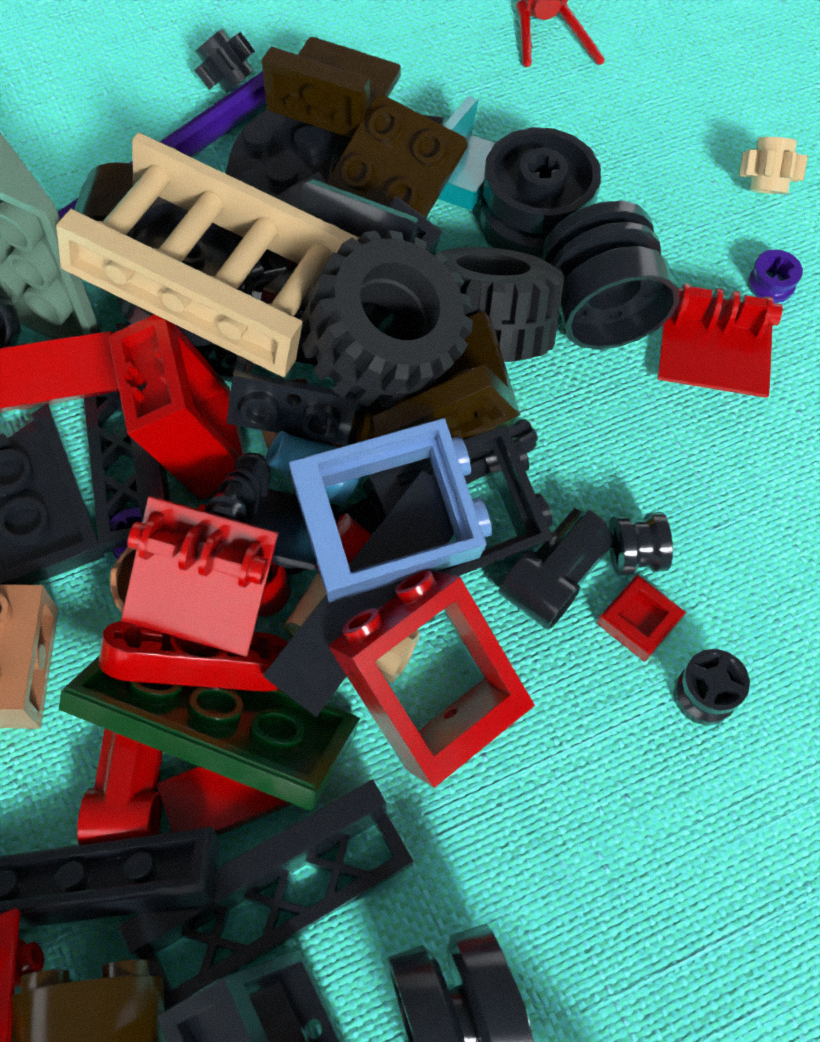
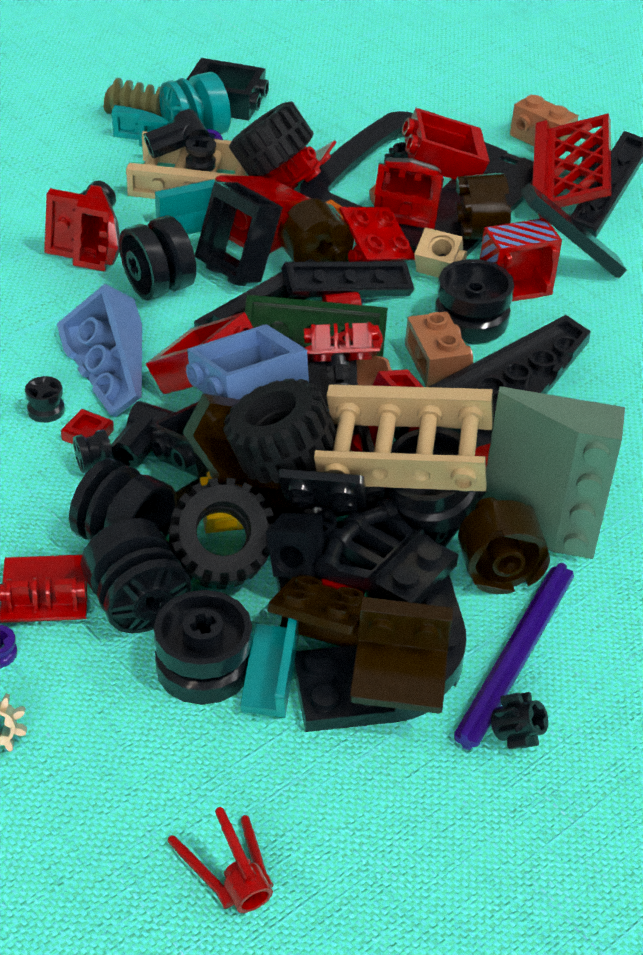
camera: 165 degrees right, 20 degrees down
(584, 813) = (107, 346): none -> medium blue wedge
(612, 377) = (118, 493): none -> black wheel

